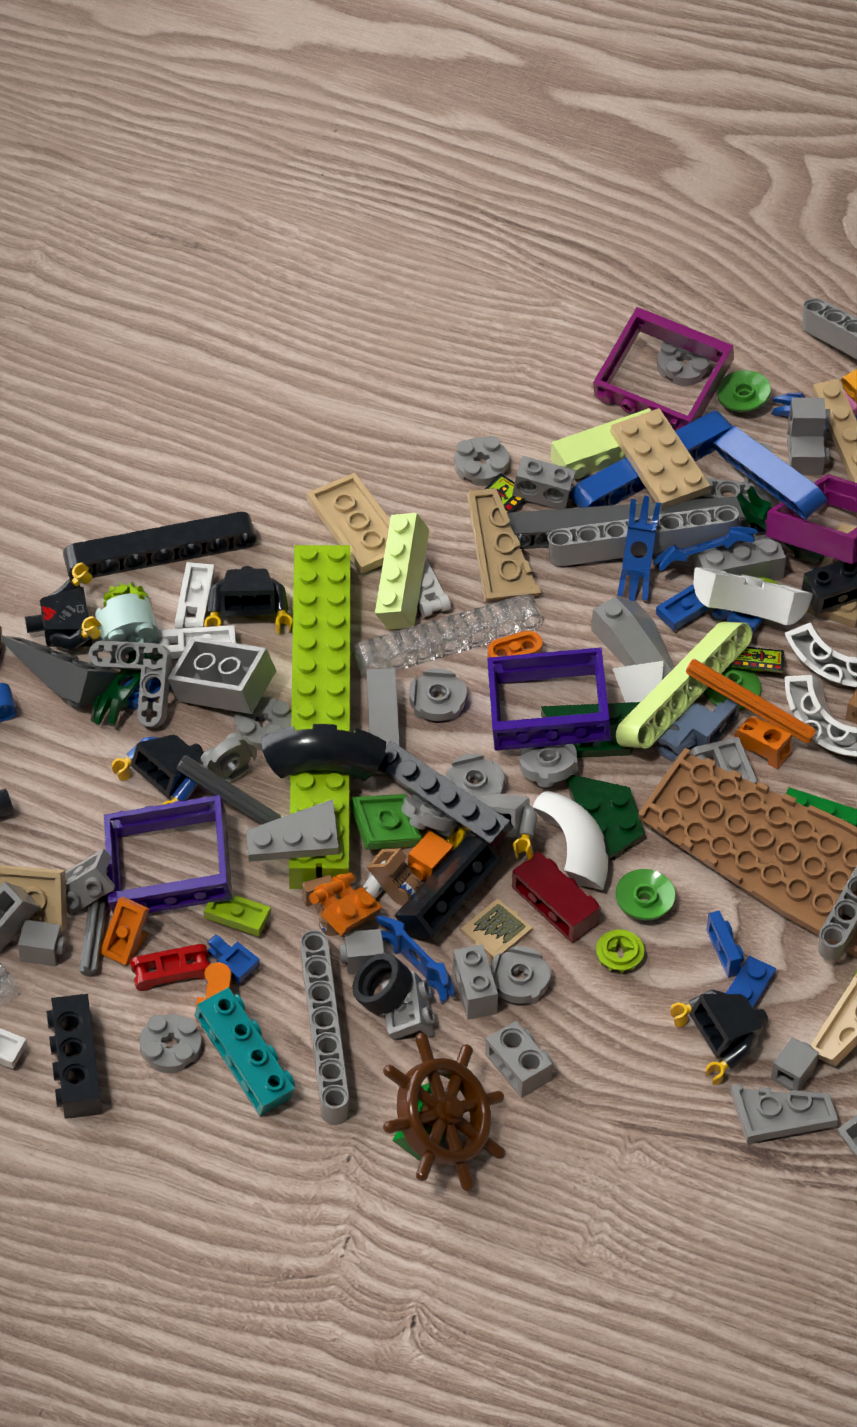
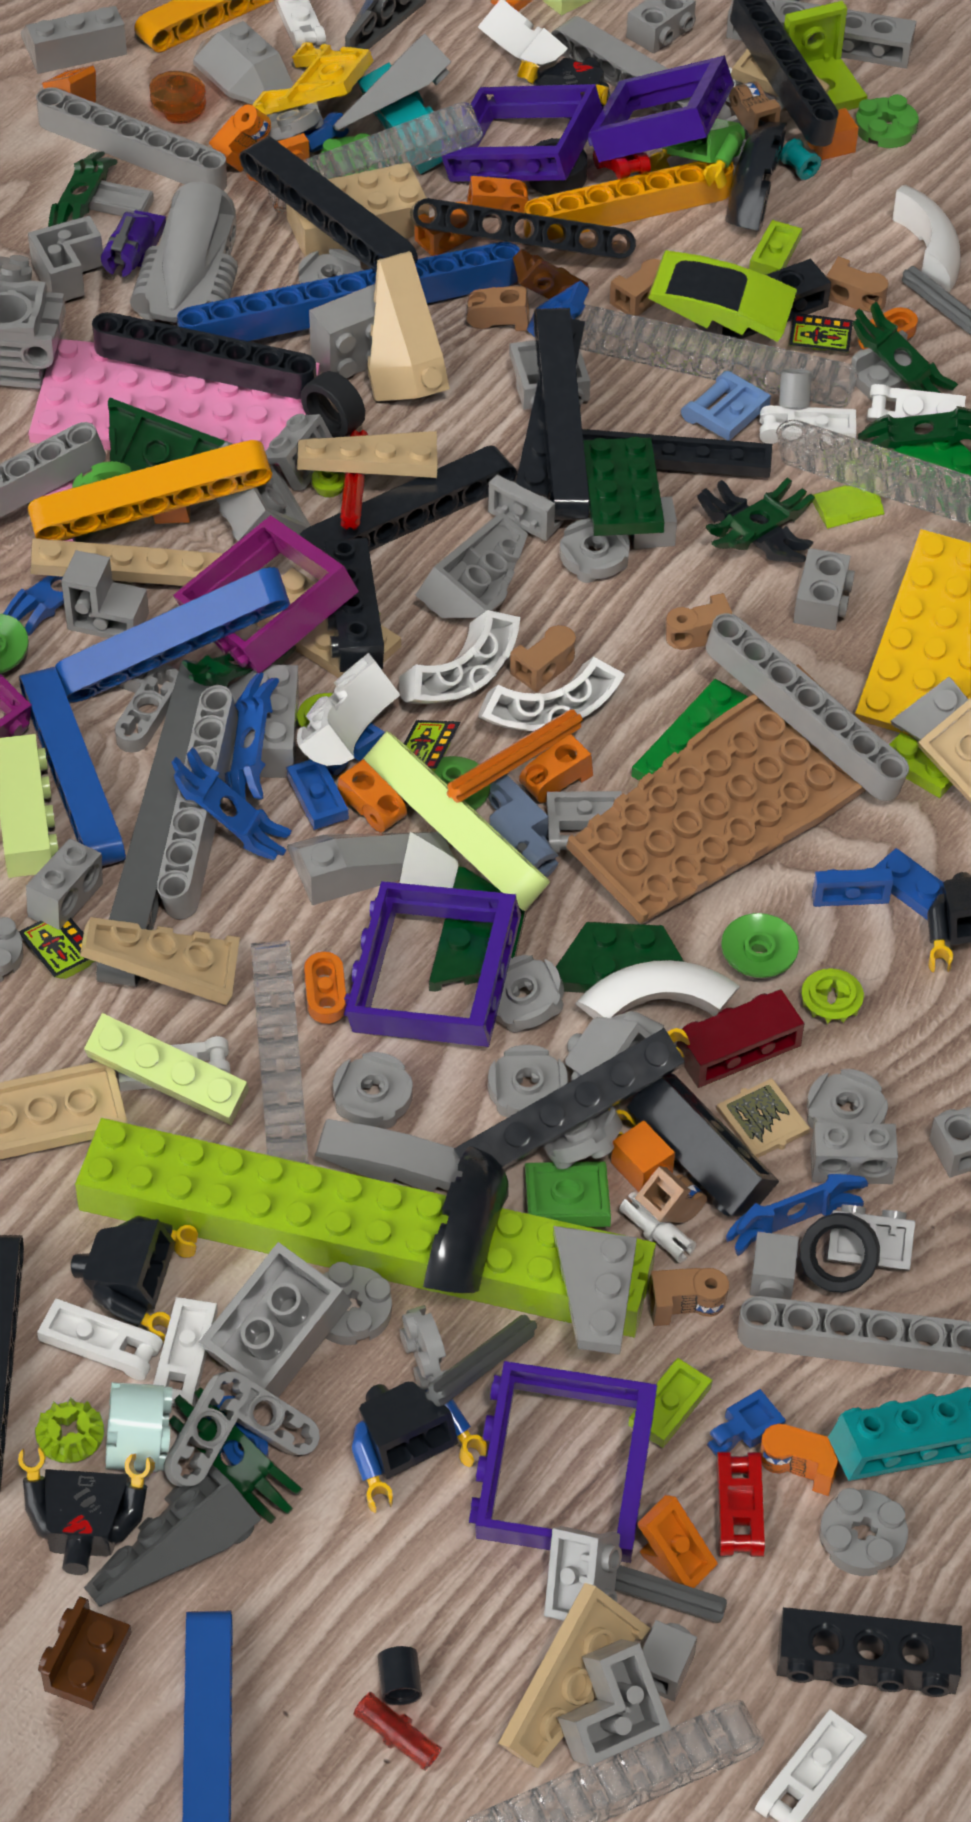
camera: 75 degrees left, 0 degrees up
(349, 911) = (710, 1259): orange plate -> none
(660, 458) = (85, 747): tan plate -> none
(691, 632) = (371, 796): none -> orange leg

